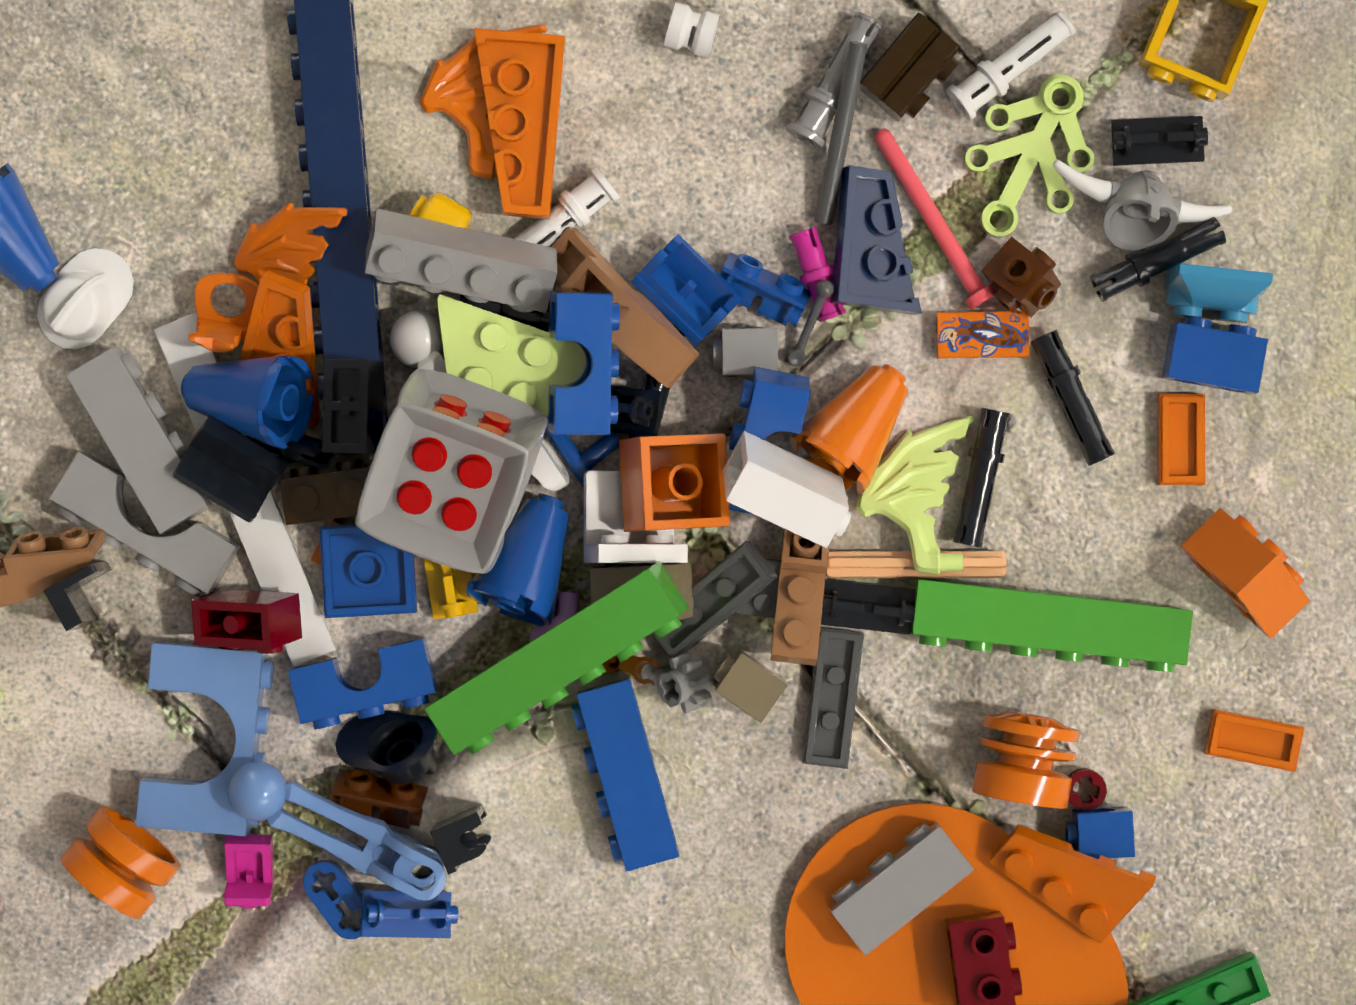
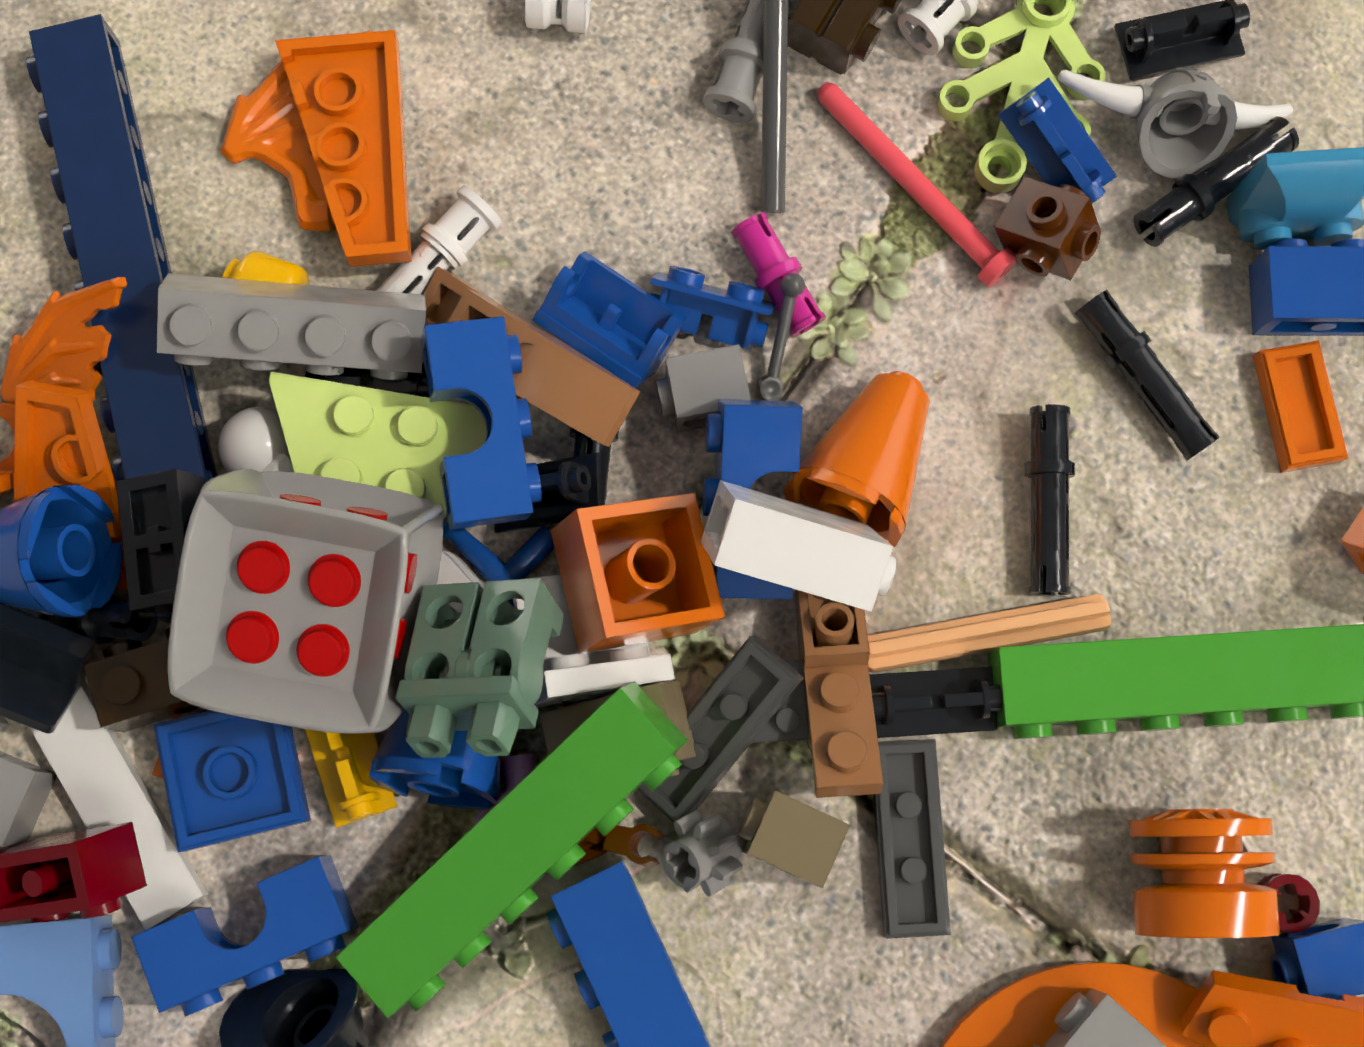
camera: 15 degrees left, 10 degrees down
(555, 532) = (478, 665): none -> sand green hips
(869, 245) = (839, 233): dark blue wing -> none
(911, 483) = (958, 524): yellowish green animal -> none
(982, 335) = (1009, 317): tile -> none
(1044, 213) = (1057, 141): none -> blue hinge

